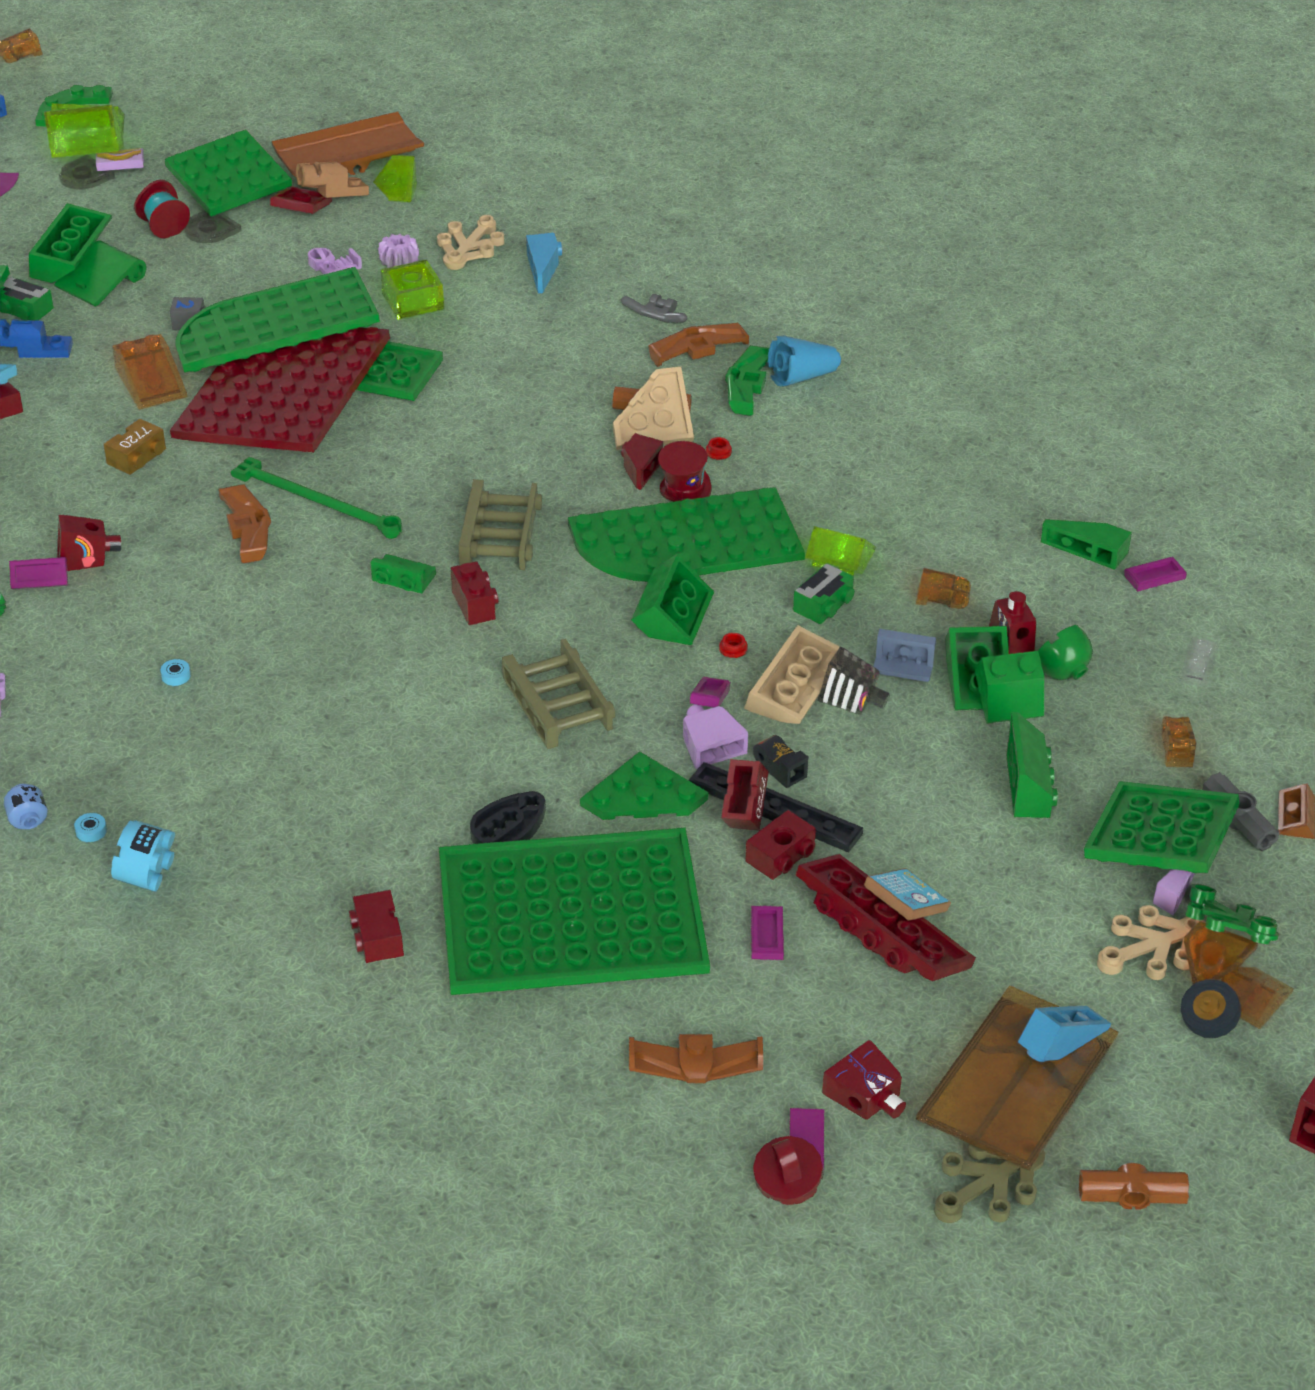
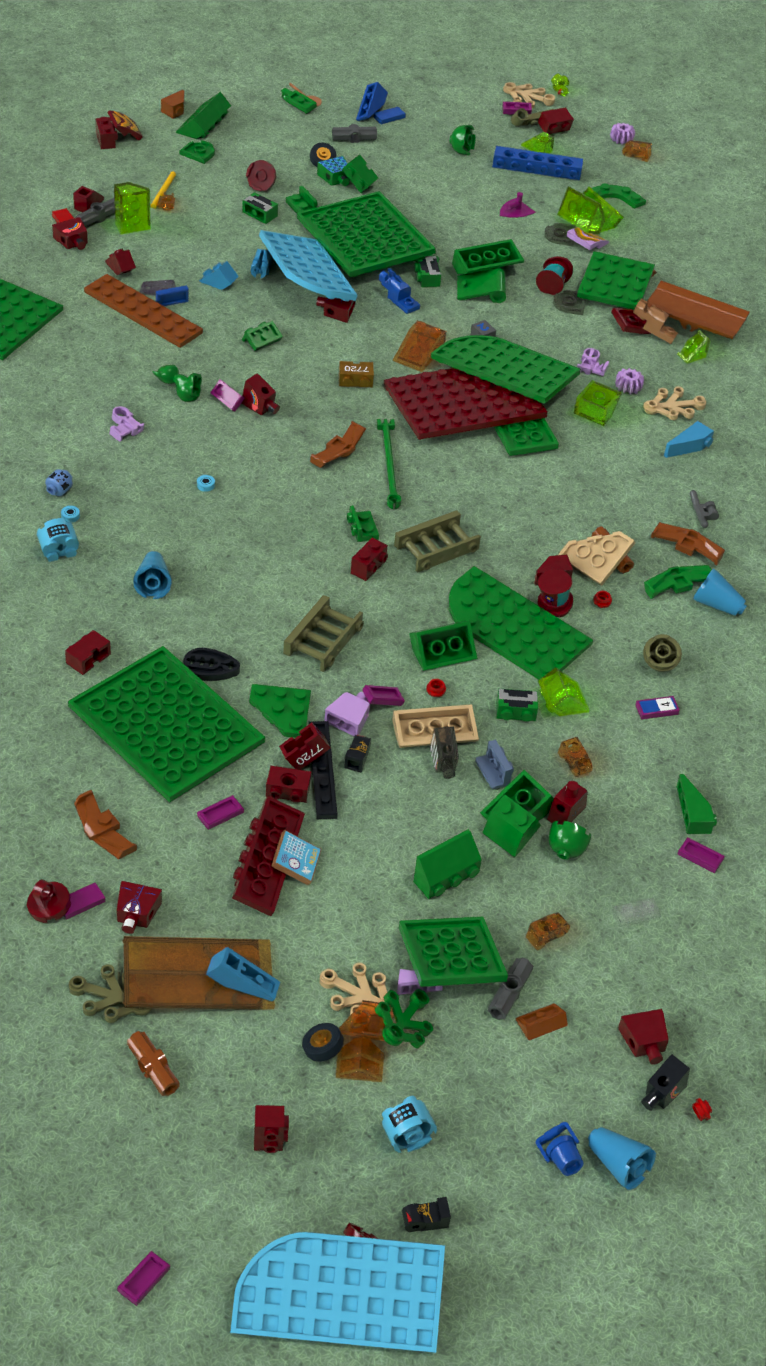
camera: 50 degrees right, 5 degrees up
(304, 792) = (152, 576): none -> dark azure cone
(854, 443) = (662, 652): none -> olive cone
(917, 494) = (657, 707): none -> tile

